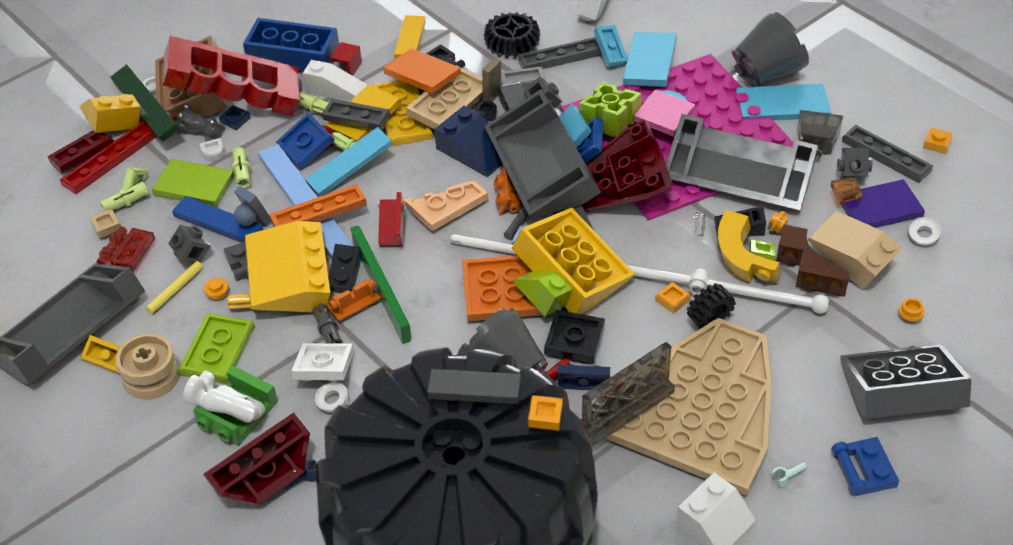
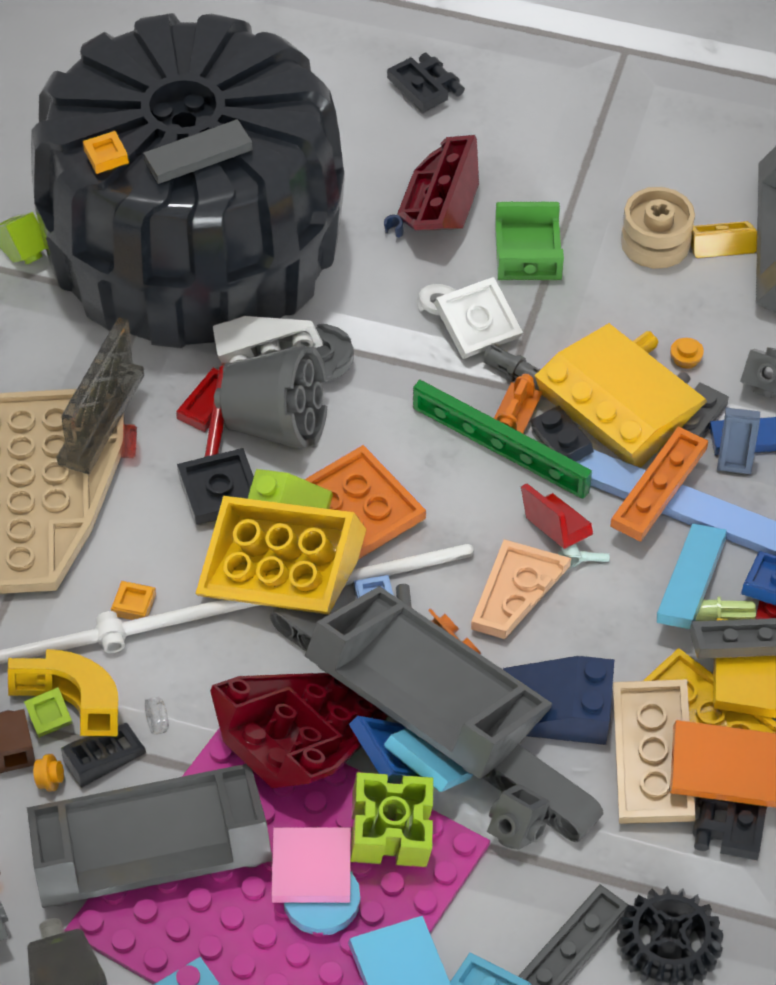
camera: 145 degrees right, 5 degrees up
(174, 287) = (737, 334): light yellow bar -> none
(217, 346) = (617, 294): lime tile -> none
(223, 399) = (533, 224): white piece -> none
(487, 110) = (592, 775): black tile -> none
(491, 80) = (611, 795): dark tan tile -> none
(525, 76) = (588, 868): light grey tile -> none
(581, 377) = (174, 438): dark blue plate -> none
(710, 304) = (68, 579): black tyre -> none

